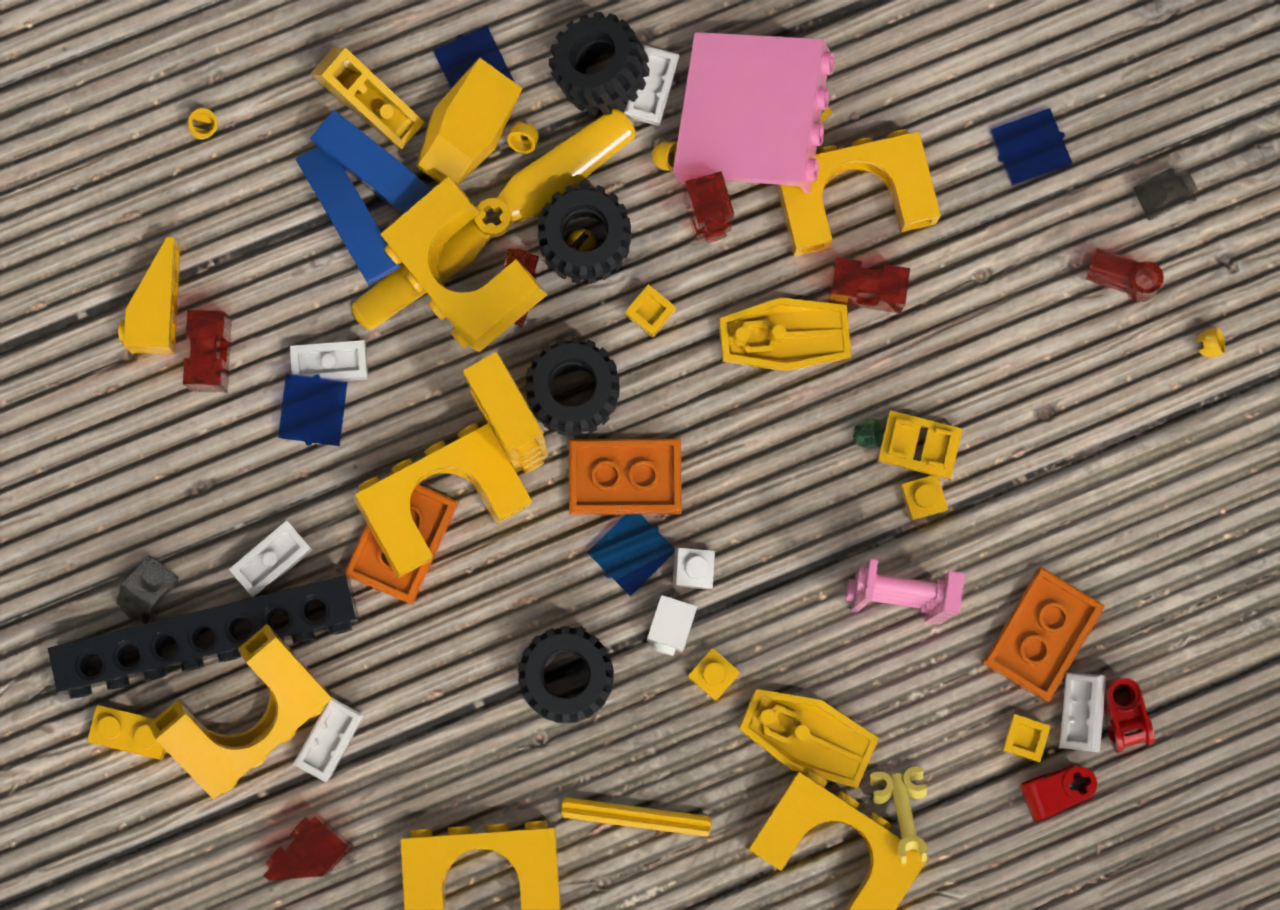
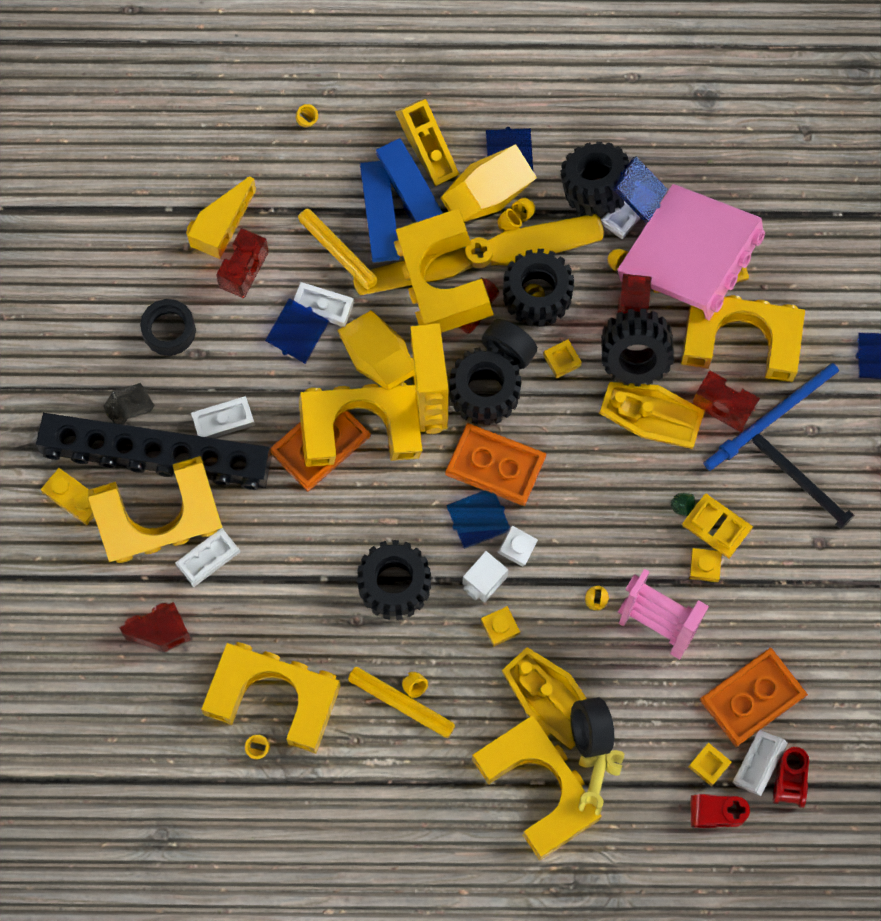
camera: 25 degrees right, 10 degrees down
(131, 450) = (164, 307): none -> black tyre
(316, 283) = (337, 249): none -> yellow axle
(423, 395) = (377, 350): none -> yellow piece
(512, 159) = (509, 220): none -> yellow hinge
(580, 319) = (511, 340): none -> black tyre
(643, 789) = (420, 686): none -> yellow hinge
(660, 59) = (640, 189): none -> clear blue piece
(738, 265) = (637, 329): none -> black tyre
(805, 593) = (590, 596): none -> yellow hinge
(875, 757) = (592, 727): none -> black tyre
(896, 340) = (730, 447): none -> blue bar
(998, 345) = (804, 482): none -> black bar

